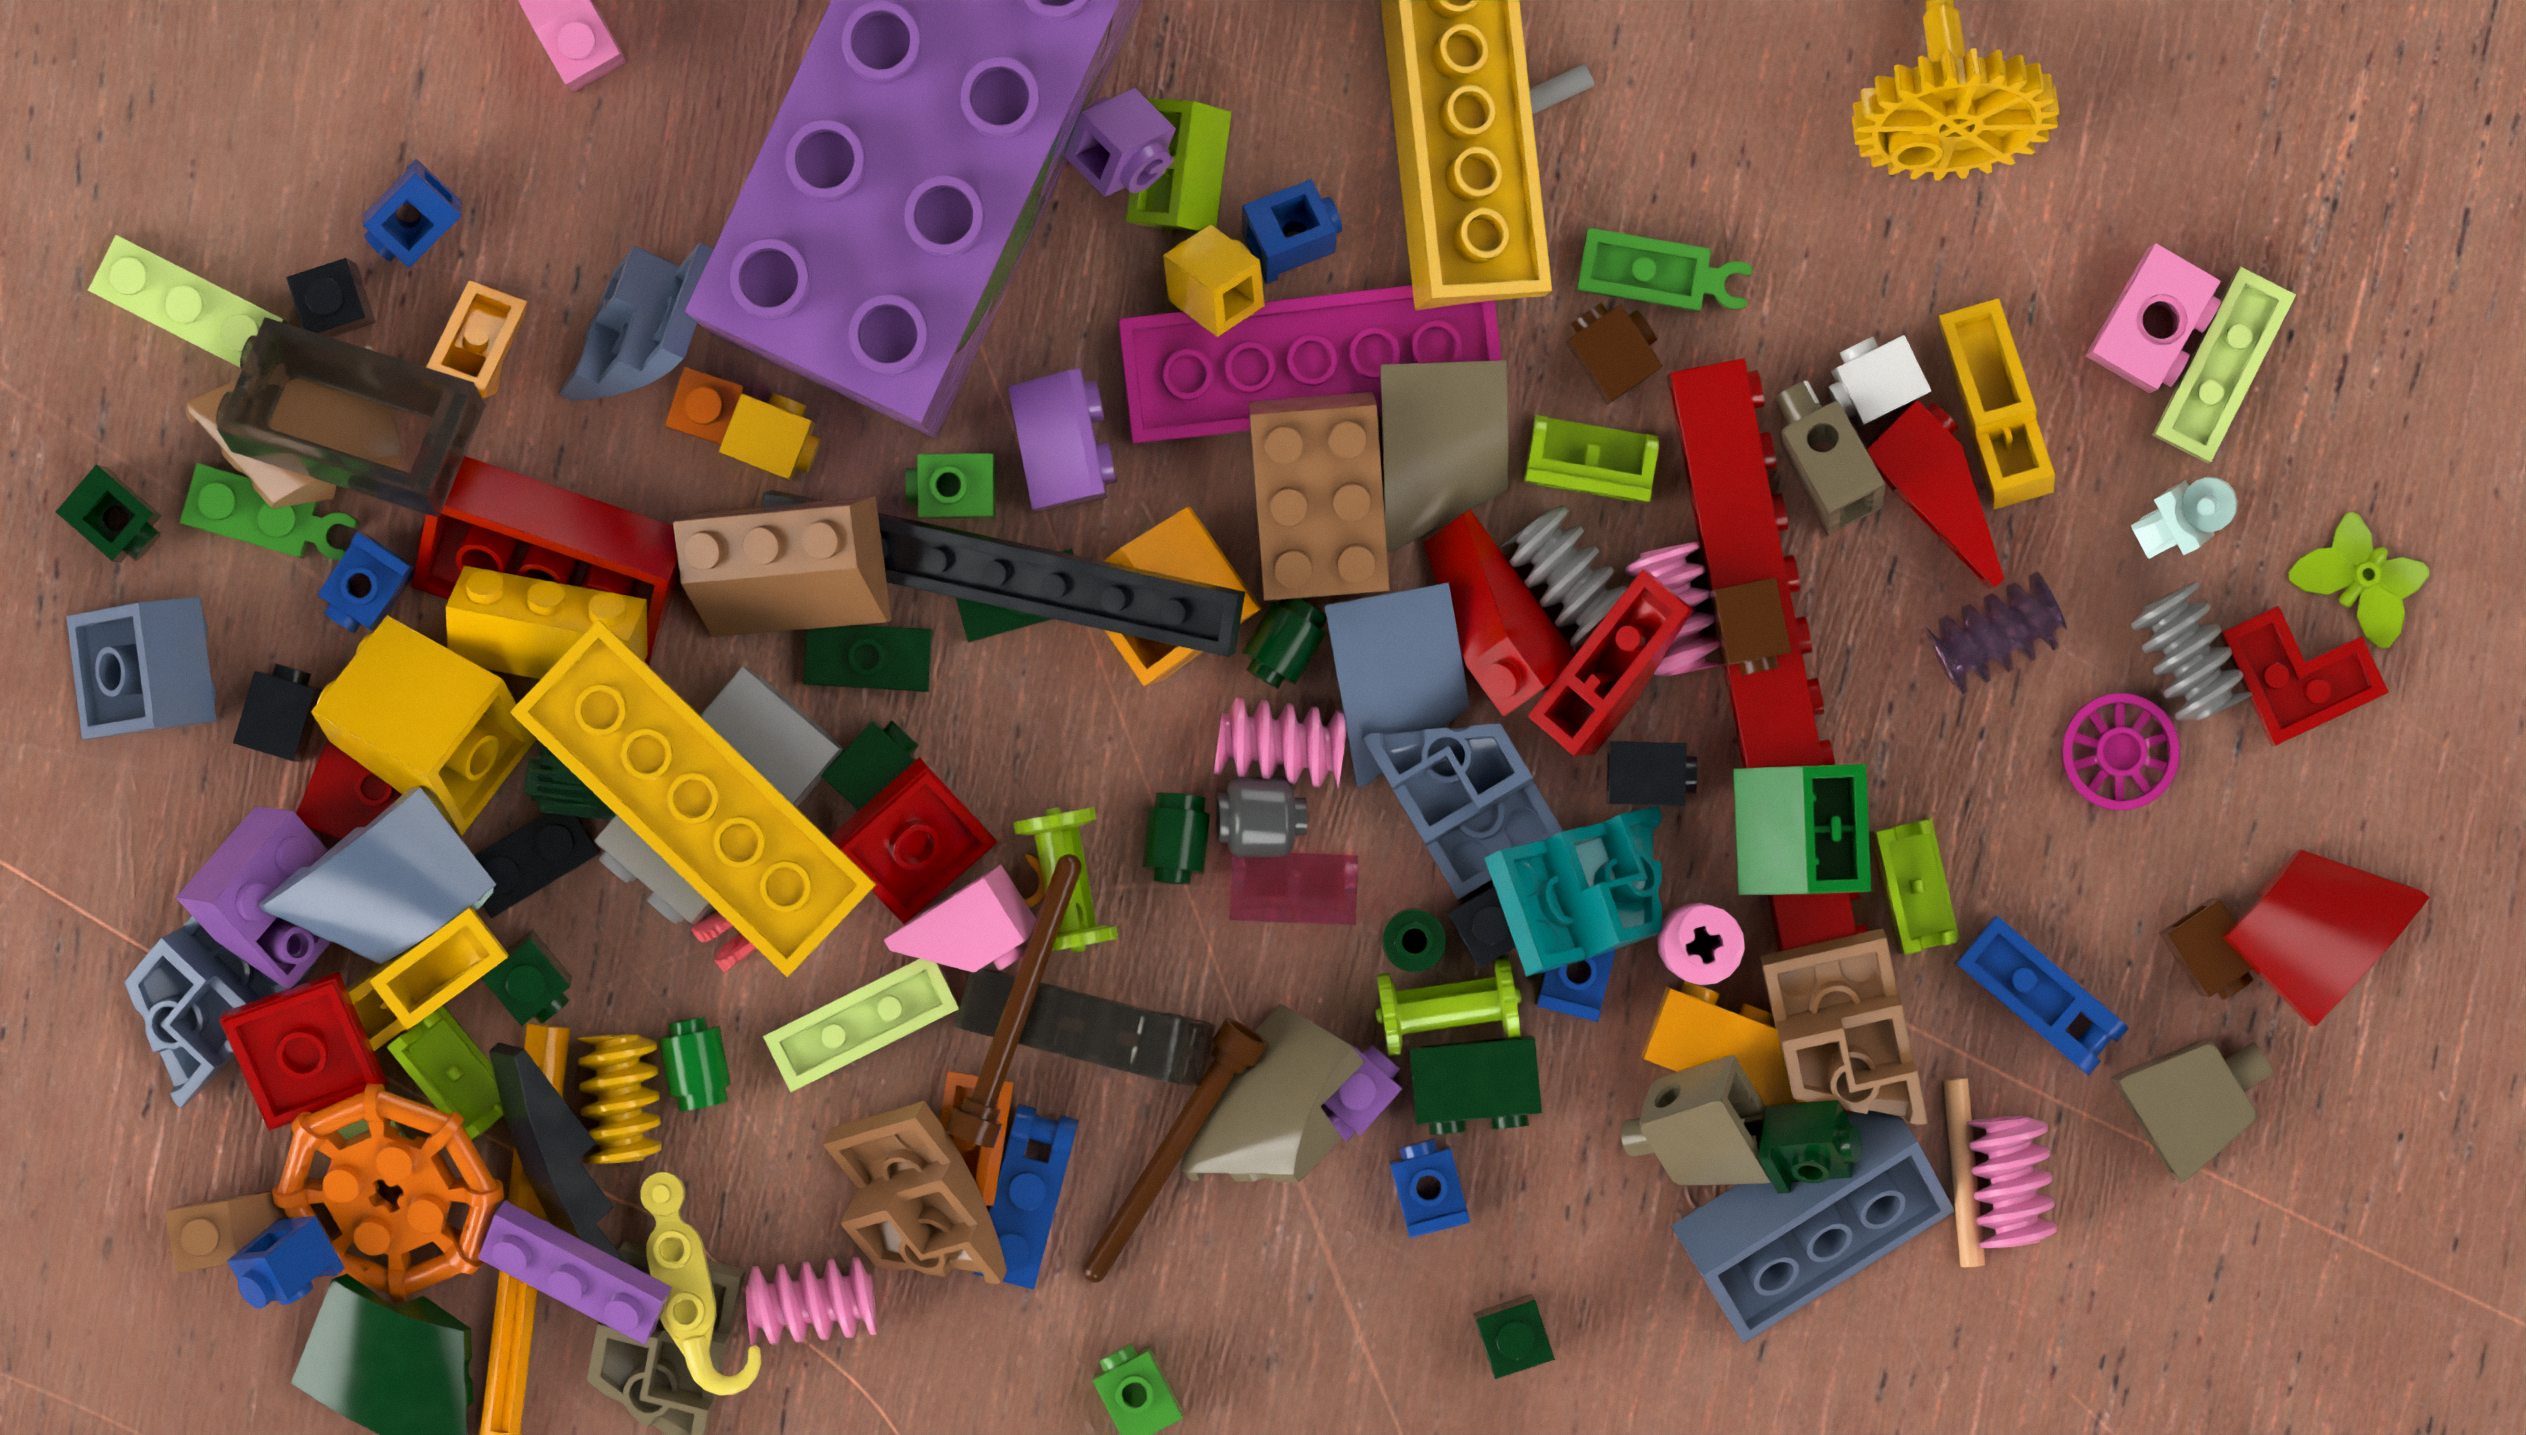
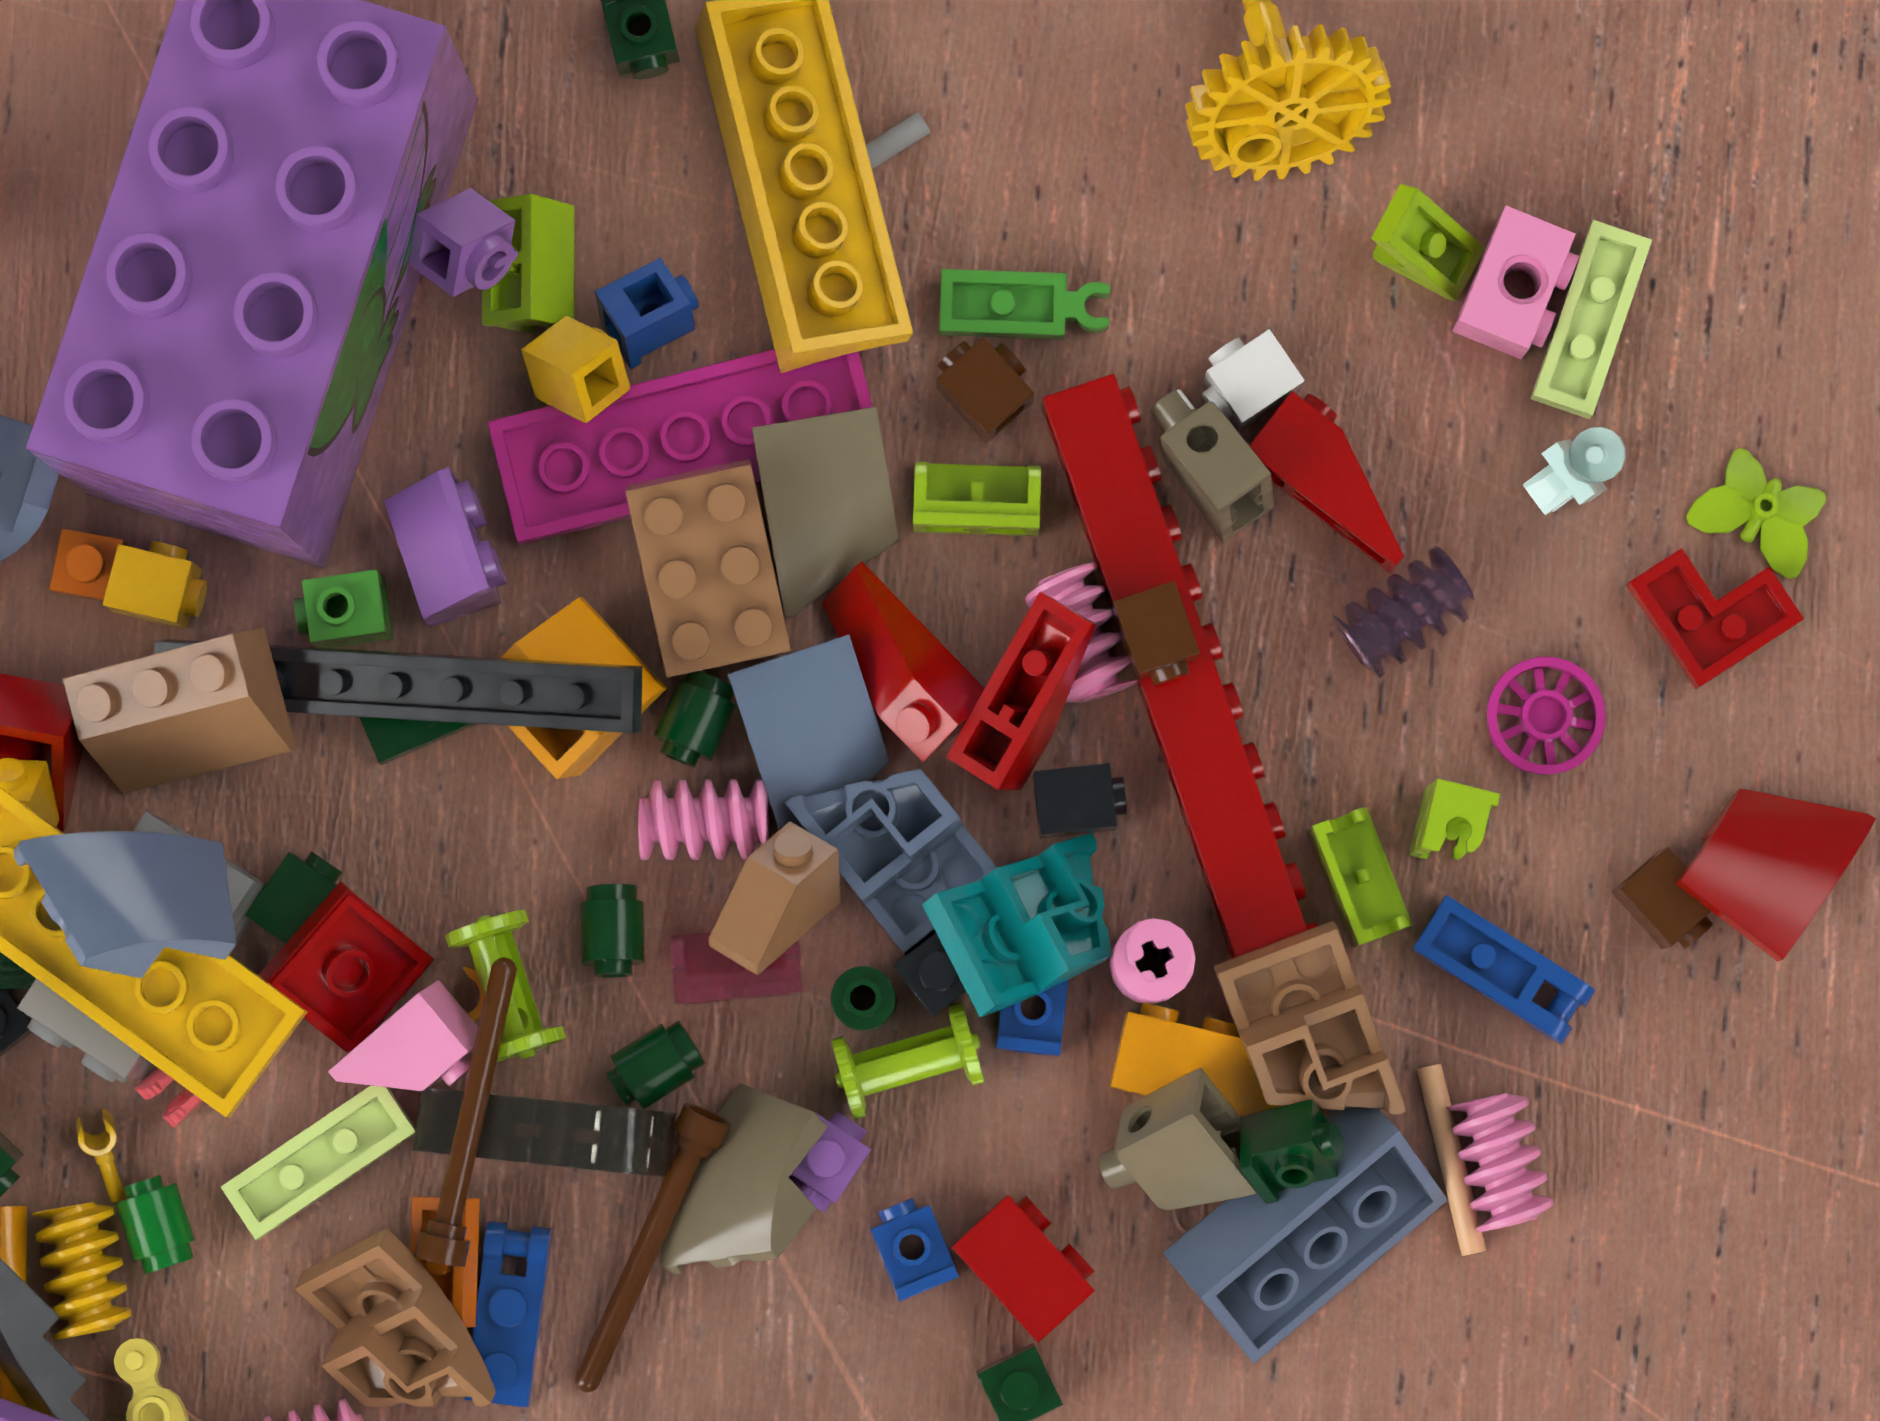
camera: 10 degrees left, 5 degrees down
(650, 981) = (101, 1148): none -> yellow hand
(727, 752) = (133, 895): none -> sand blue slope
(869, 657) = (282, 792): dark green plate -> none
(1200, 975) = (655, 1065): none -> dark green brick
(1260, 817) = (689, 895): dark grey head -> none
(1343, 831) = (777, 898): none -> medium nougat slope
(1475, 1082) = (945, 1135): dark green brick -> none
(1534, 1220) = (1024, 1266): none -> red brick
(1565, 572) = (963, 609): light grey piece -> none
(1802, 829) = (1237, 830): green slope -> none
(1997, 404) = (1372, 388): yellow slope -> none
(2012, 840) = (1452, 813): none -> lime hinge
(2072, 268) = (1425, 244): none -> lime slope
(2189, 654) = (1599, 608): light grey piece -> none
(2193, 1102) = (1671, 1056): dark tan torso -> none

